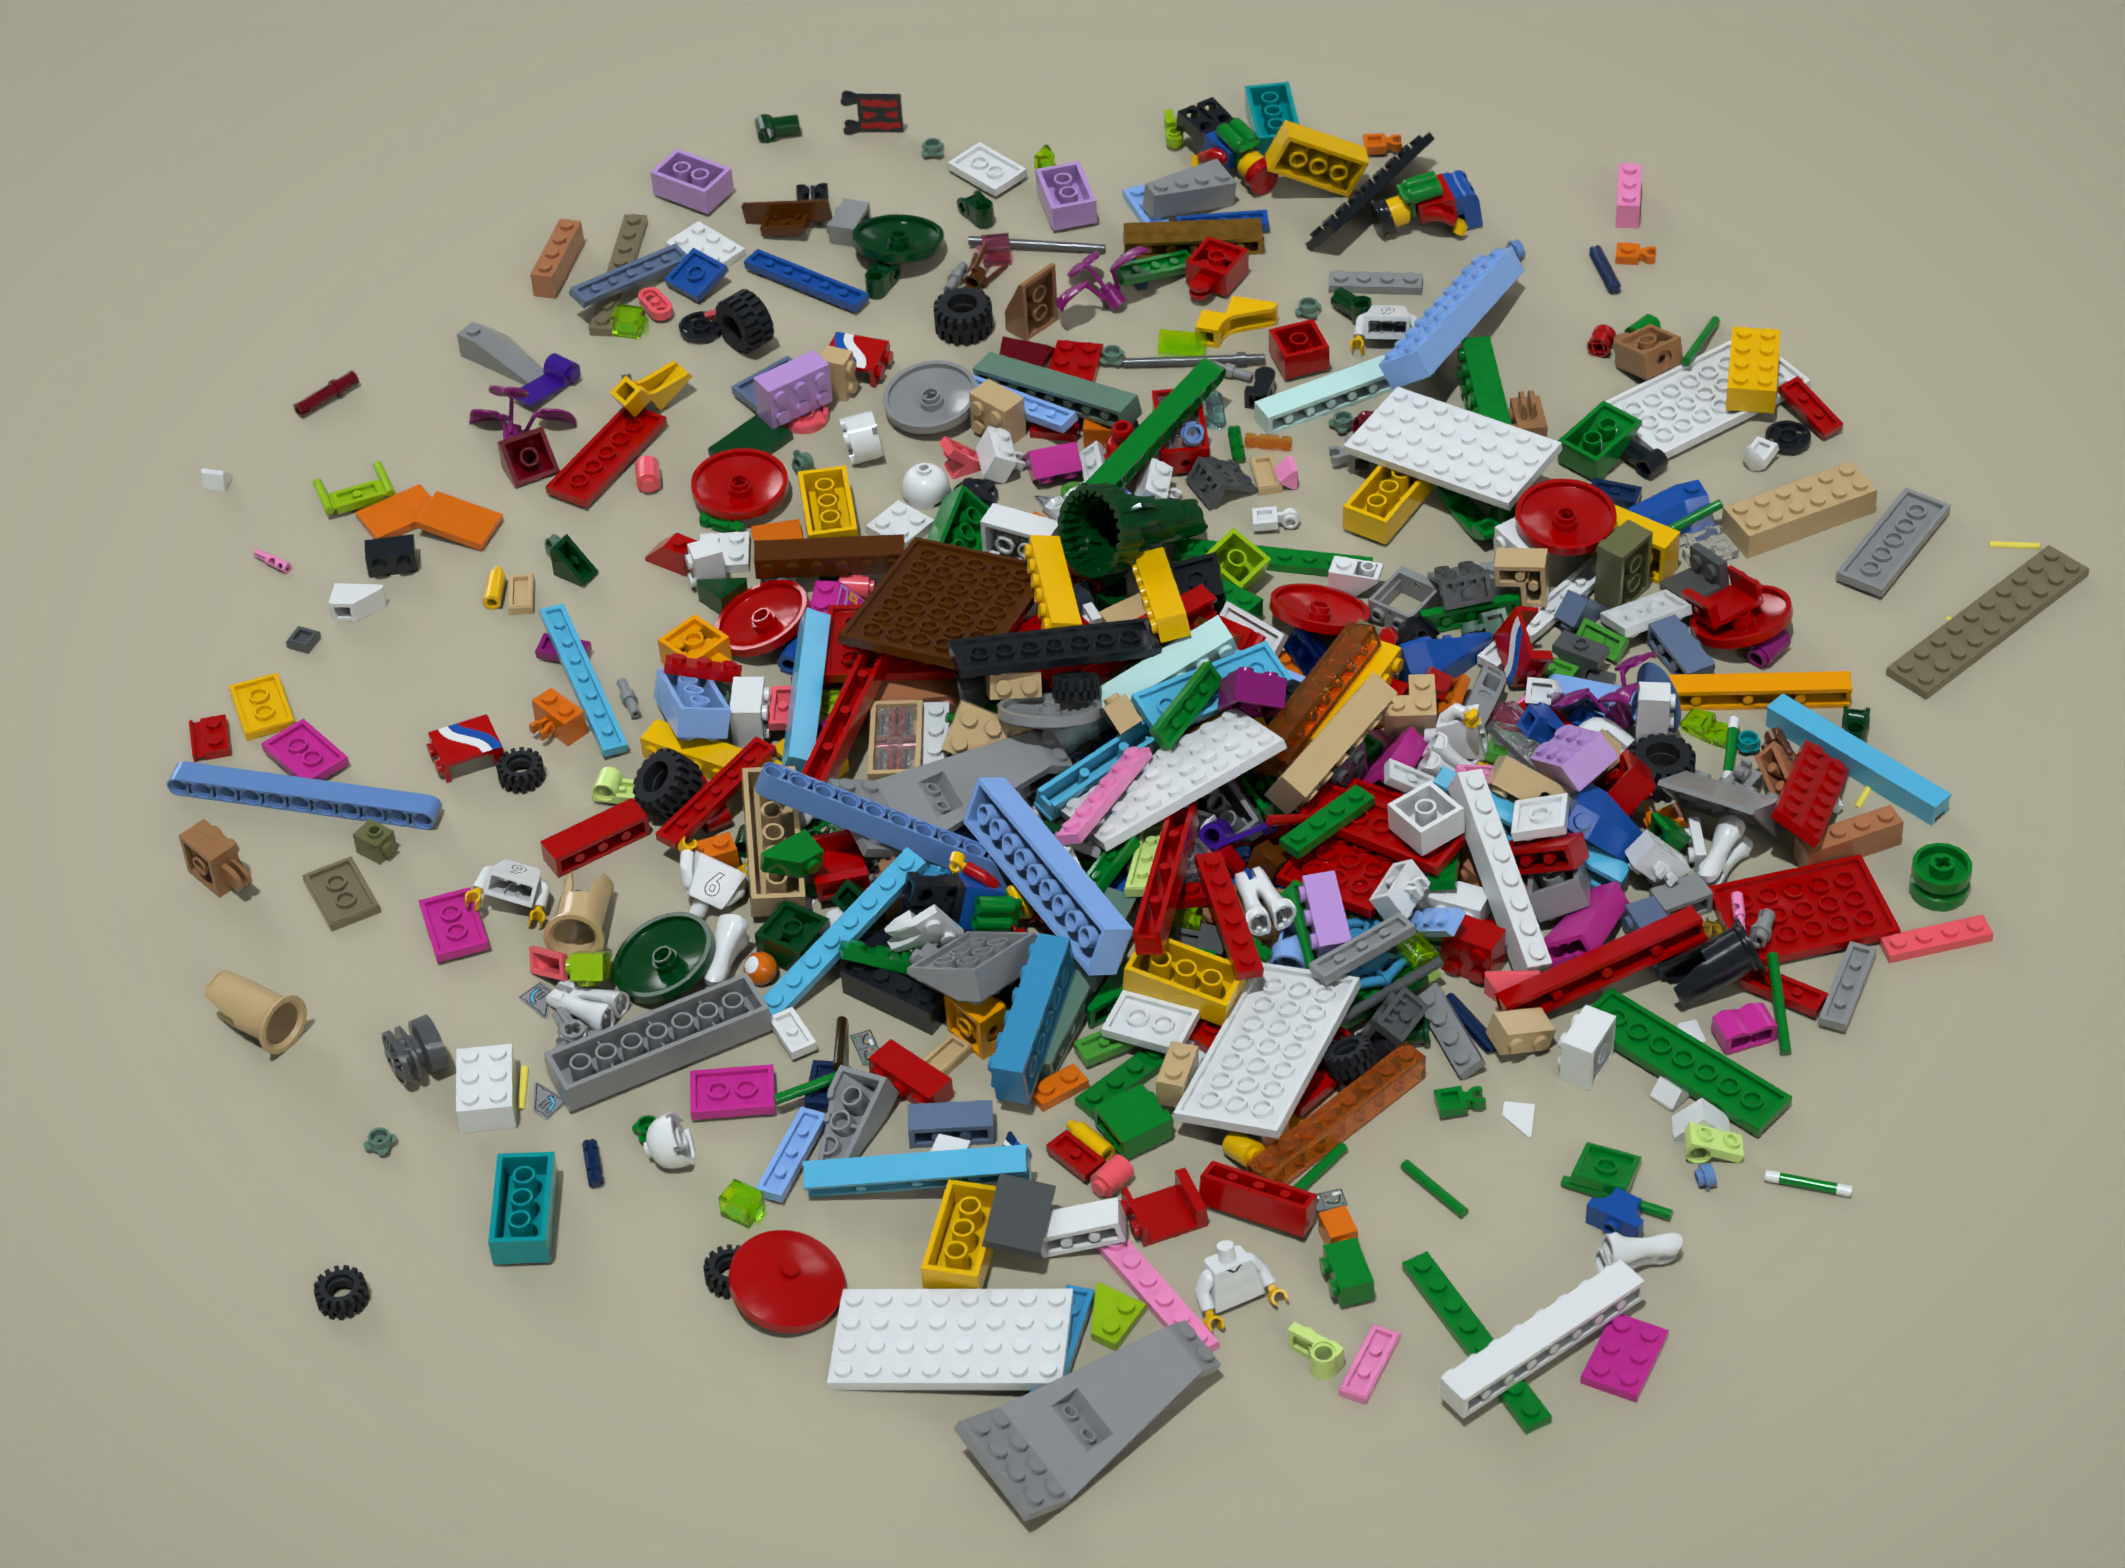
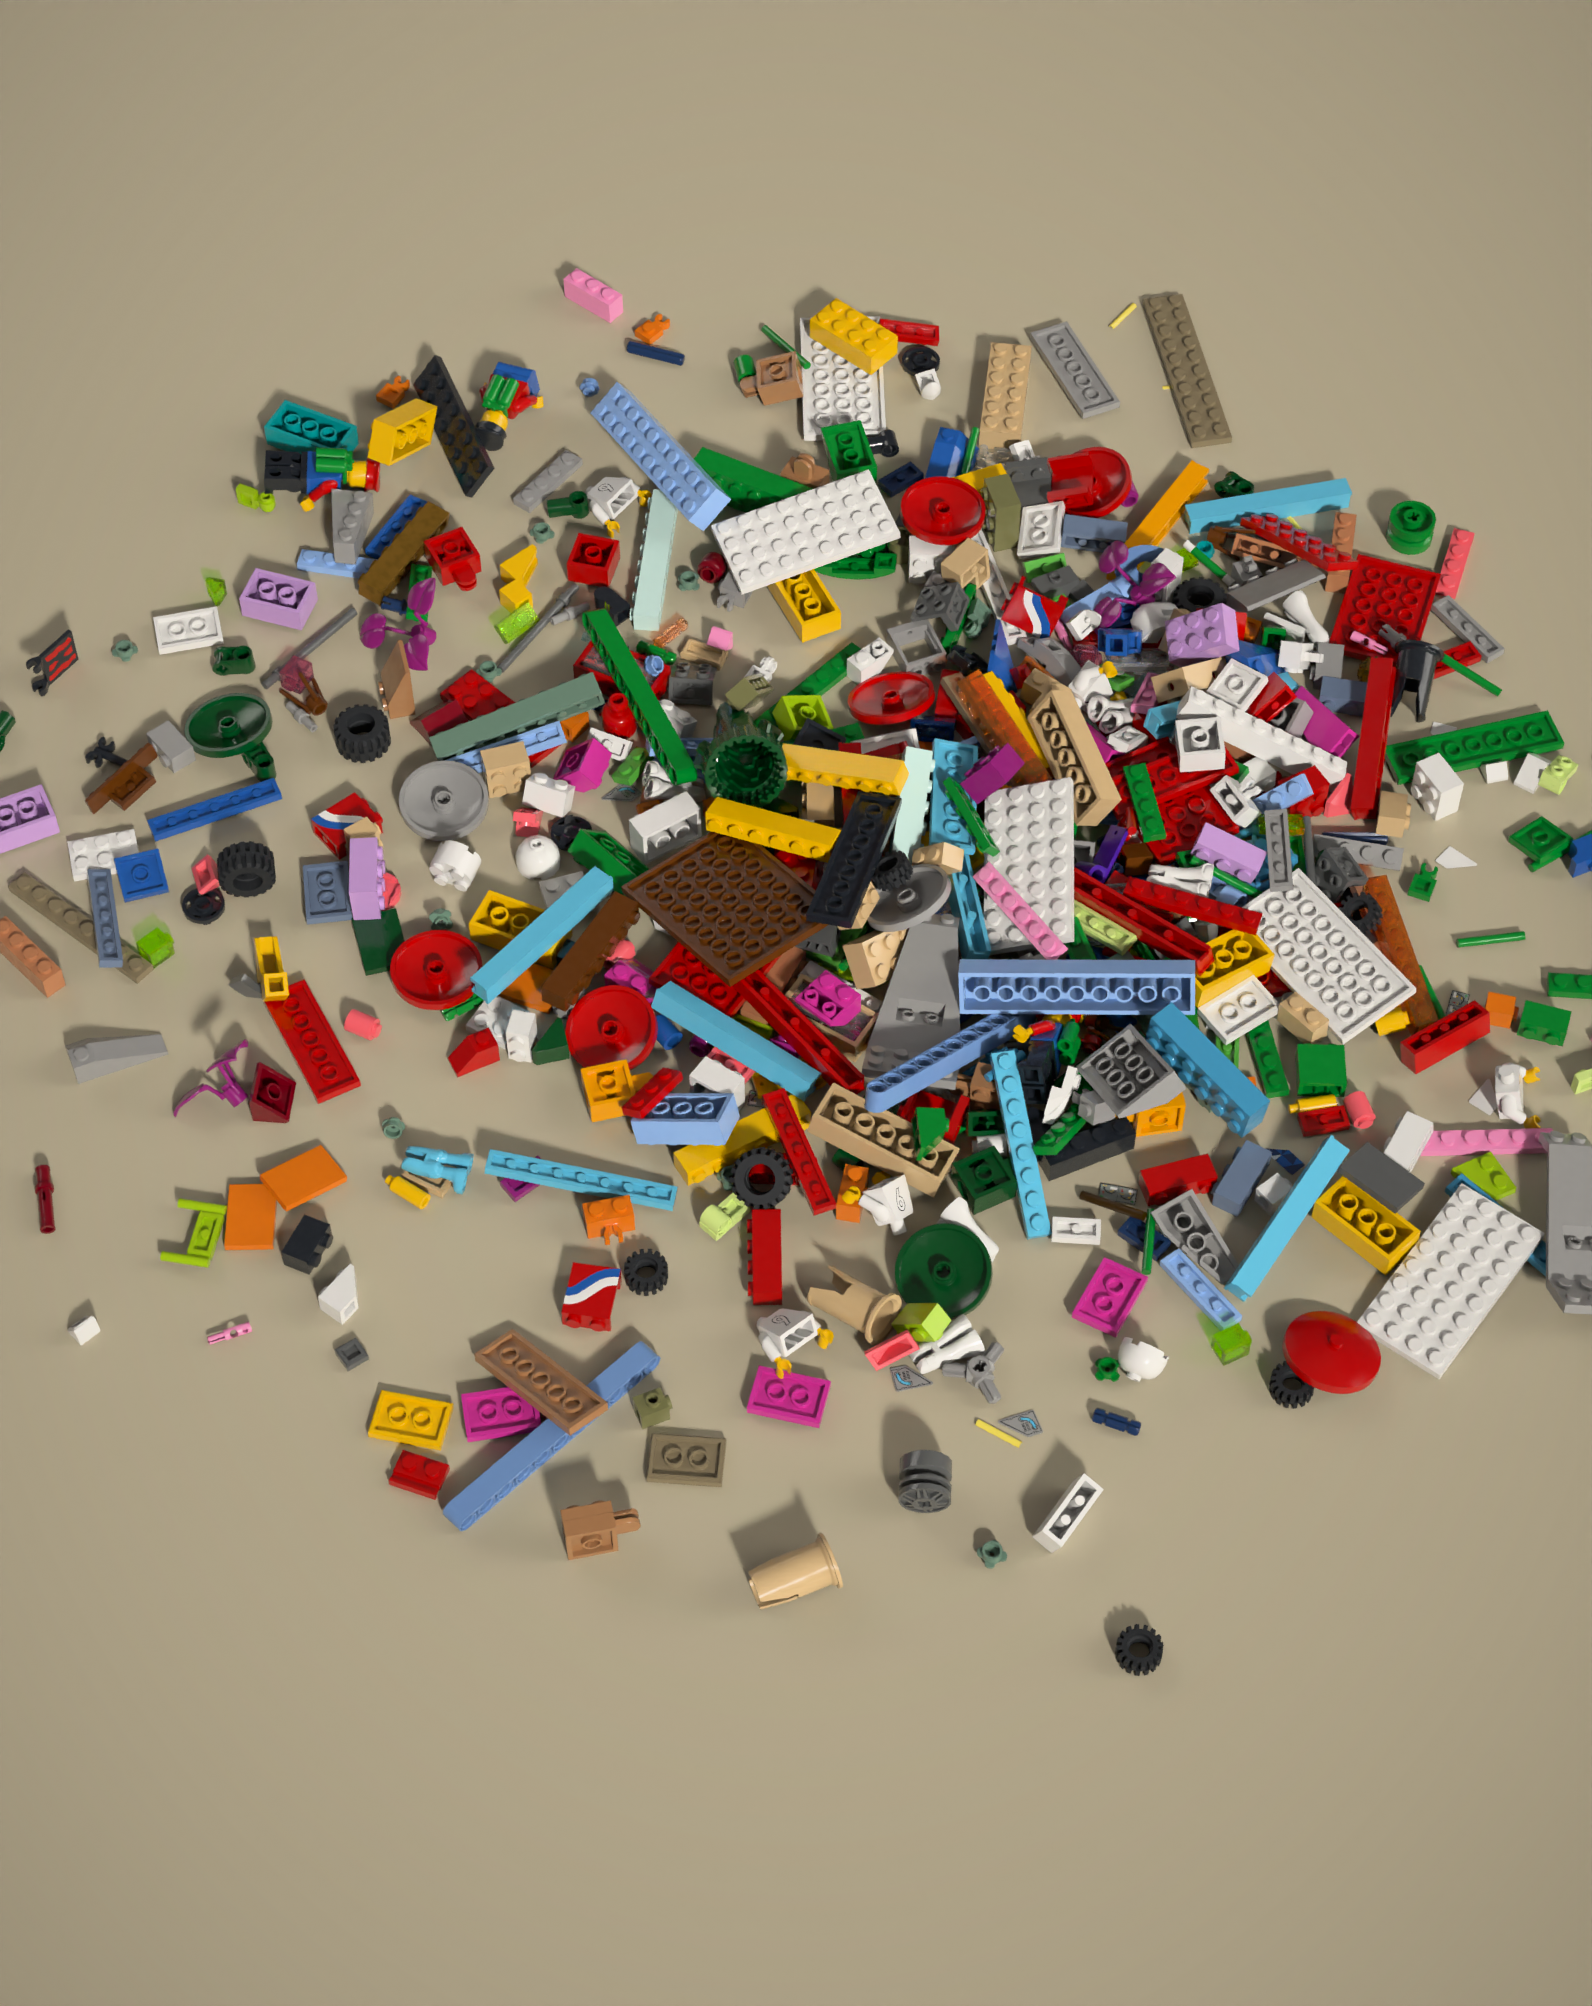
camera: 60 degrees left, 10 degrees up
(342, 754) = (541, 1382): none -> medium nougat plate
(451, 1167) = (1067, 1513): none -> white brick
(486, 1088) = (993, 1454): white brick -> none
(522, 583) = (430, 1163): none -> medium azure piece
(523, 1208) = (1144, 1485): teal brick -> none
(558, 375) = (179, 1038): dark purple door -> none
(571, 563) = (429, 1125): dark green slope -> none
(628, 698) = (618, 1162): light grey bar -> none
(655, 303) = (148, 919): coral plate -> none
(658, 1041) = (1030, 1318): light grey brick -> none
(761, 968) = (993, 1218): orange piece -> none
(815, 514) = (541, 934): none -> medium azure tile
(891, 724) = (830, 1000): none -> dark pink slope
(949, 1054) = (1164, 1146): tan tile -> none
(1166, 1211) = (1409, 1090): red panel -> none
(1217, 504) = (748, 692): none -> olive brick
(1575, 608) = (1009, 563): sand blue slope -> none
(1601, 340) = (737, 398): red wheel -> none
(1705, 1176) = (1581, 792): medium blue plate -> none
(1736, 553) = (1022, 451): none -> white plate
(1744, 1027) = (1467, 700): dark pink brick -> none

